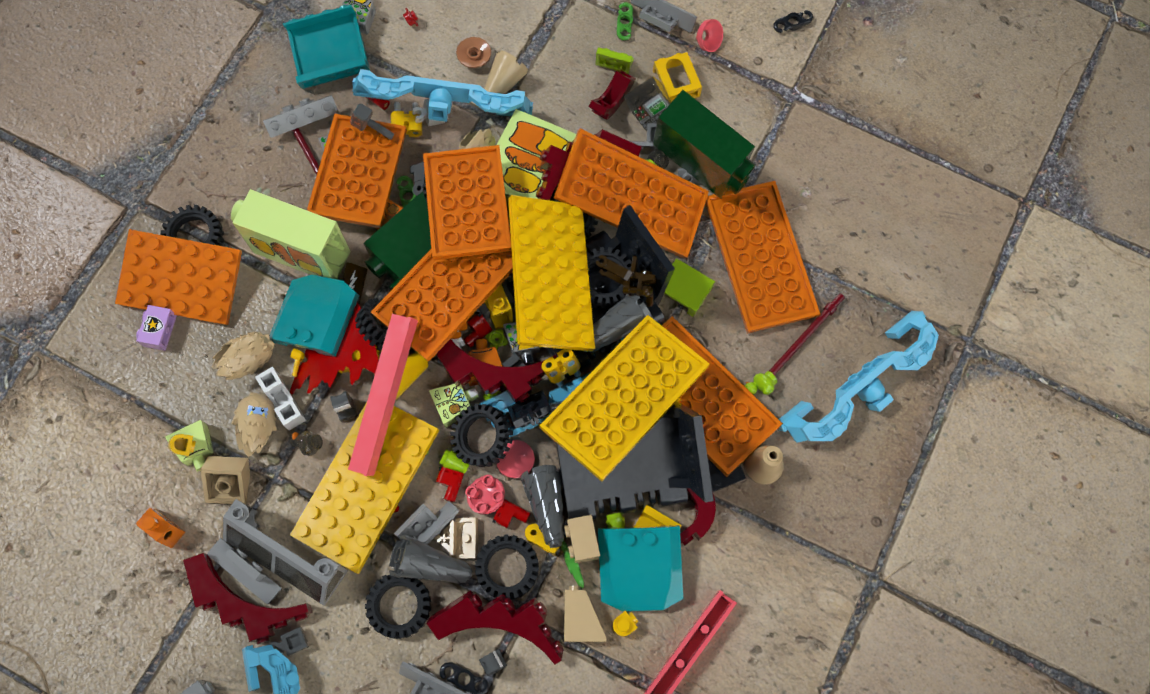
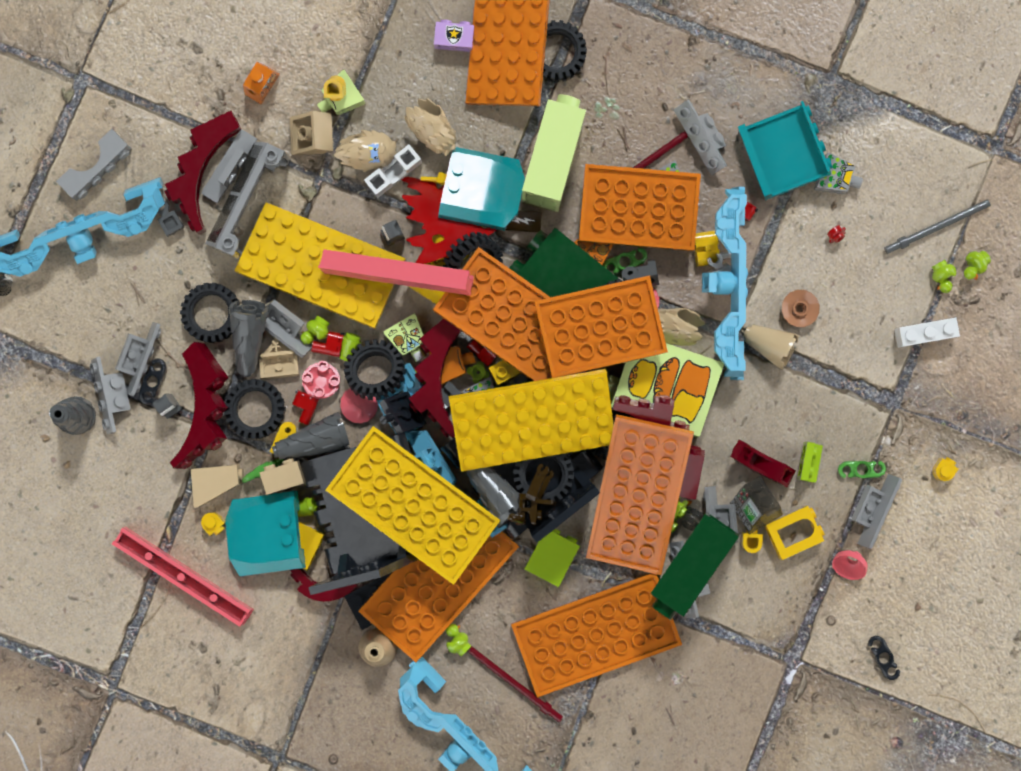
camera: 90 degrees right, 15 degrees up
(307, 442) = (354, 204): clear smoke animal -> none
(362, 117) = (691, 206): dark grey piece -> none
(429, 493) = (317, 327): none -> lime animal
(557, 368) = (443, 440): yellow piece -> none

